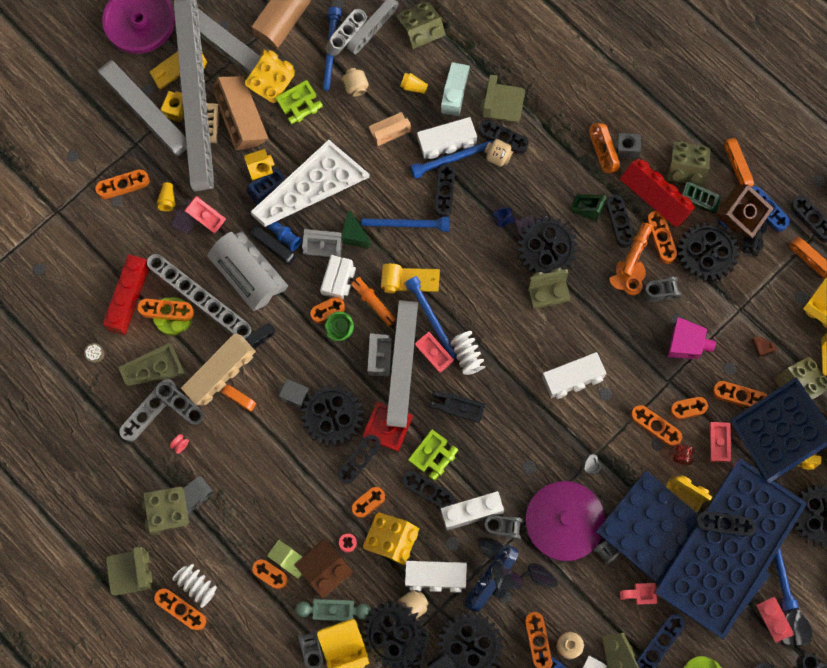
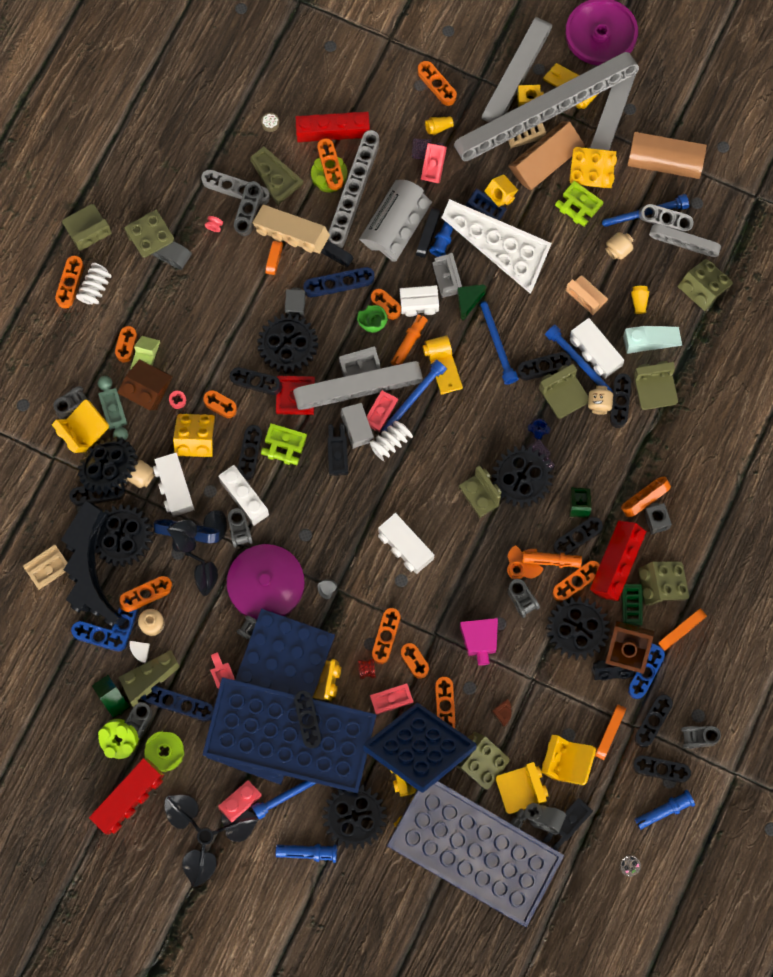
camera: 65 degrees right, 0 degrees up
(285, 345) = (339, 284): none -> dark blue beam
(440, 379) = (356, 425): none -> light grey hinge
(478, 181) = (563, 391): none -> olive bracket

